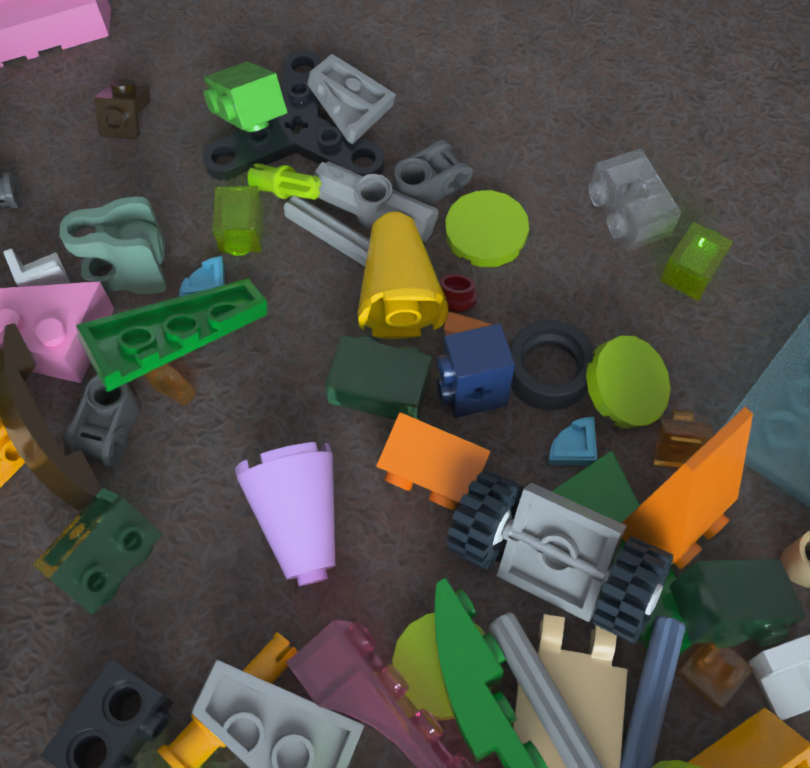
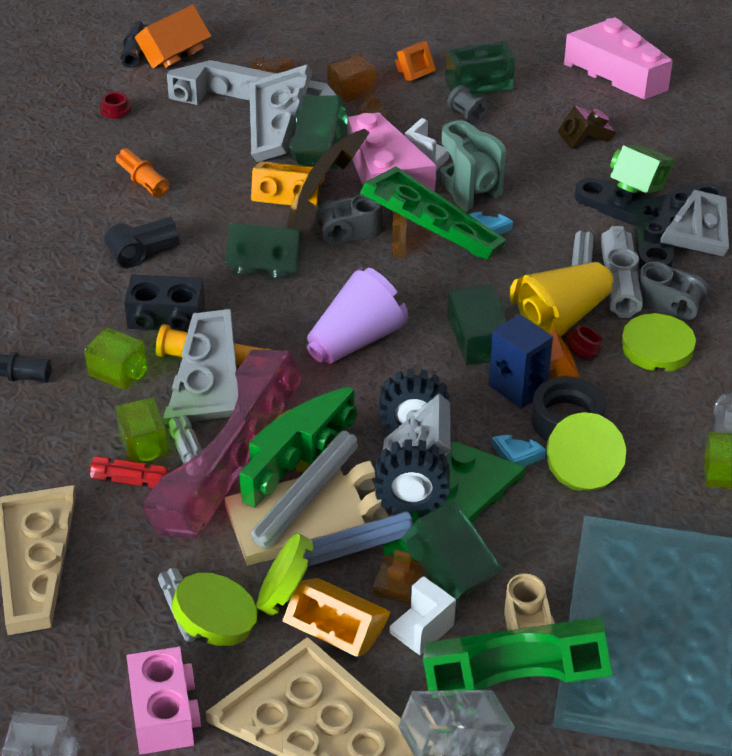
camera: 60 degrees right, 20 degrees down
(238, 220) = (545, 214): clear neon green brick -> none
(284, 181) = (594, 219): lime axle -> none
(432, 460) = (442, 355): orange brick -> none
(680, 439) = (562, 499): clear orange tile -> none
(695, 495) = (509, 481): orange slope -> none

